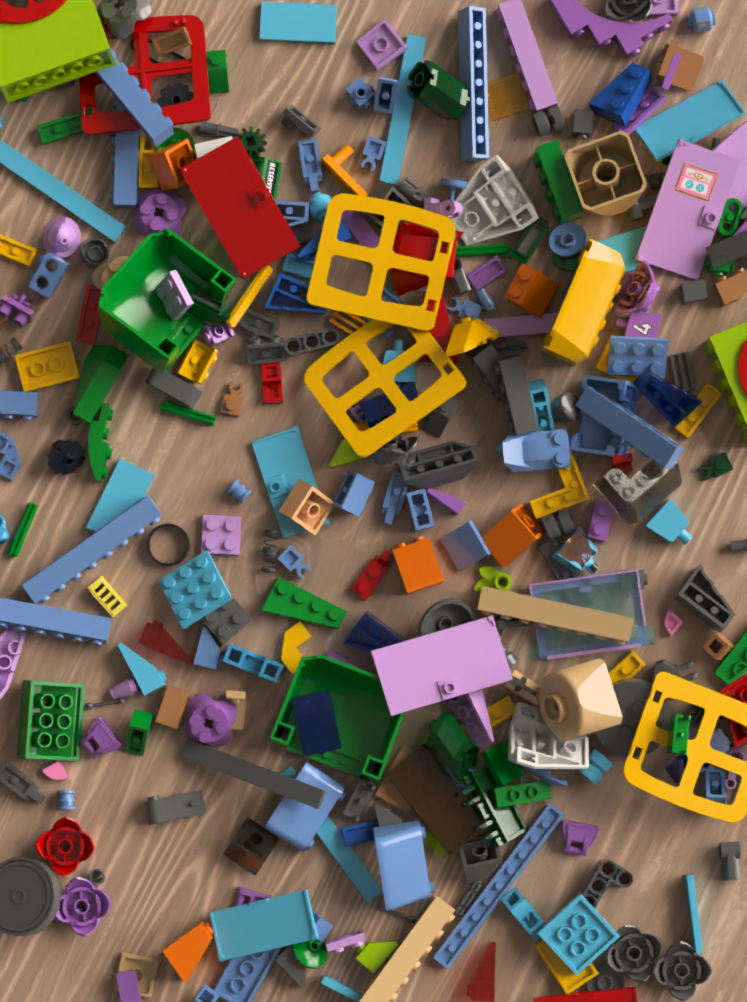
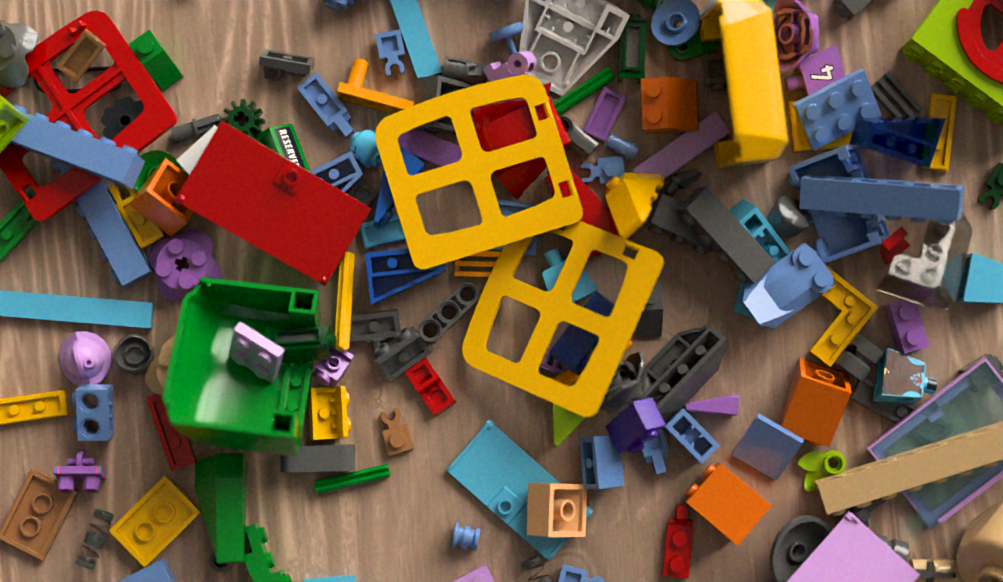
camera: 30 degrees left, 0 degrees up
(387, 481) = (635, 426): none -> dark purple brick

